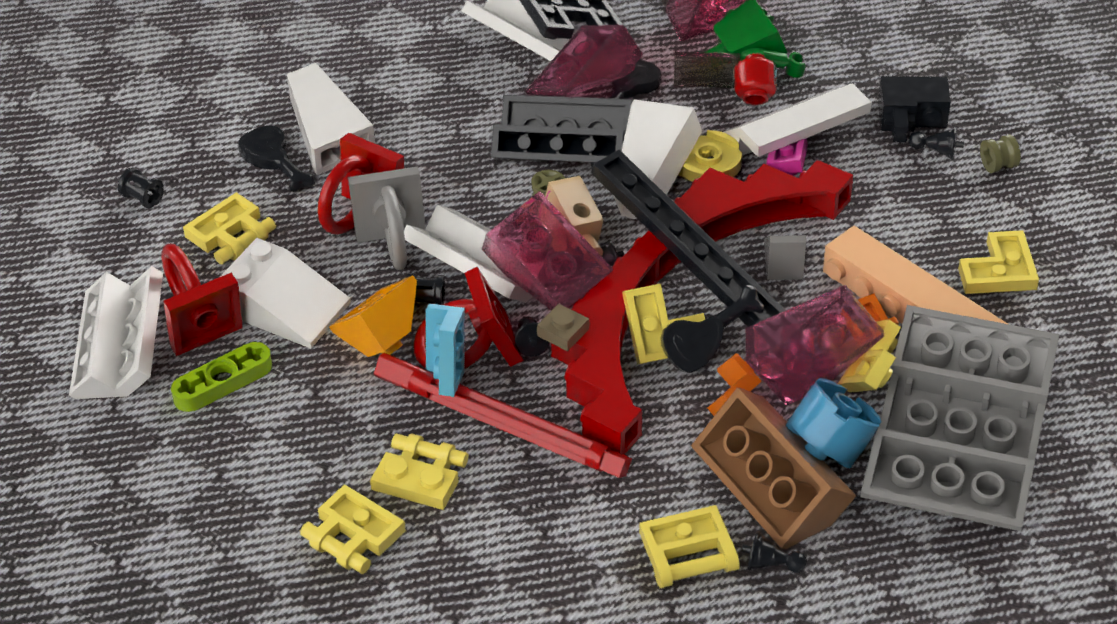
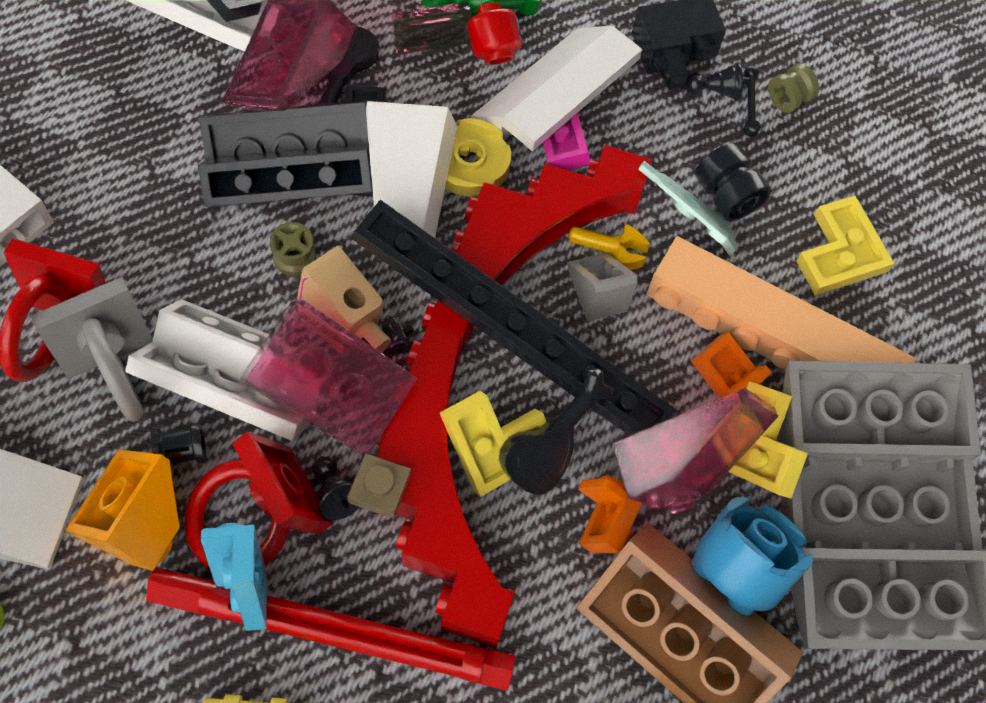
camera: 25 degrees left, 20 degrees up
(816, 237) = (614, 245): none -> yellow bar
(898, 235) = (694, 208): none -> light aqua piece
(919, 204) = (730, 177): none -> black wheel
(957, 177) = (752, 126): none -> black hinge

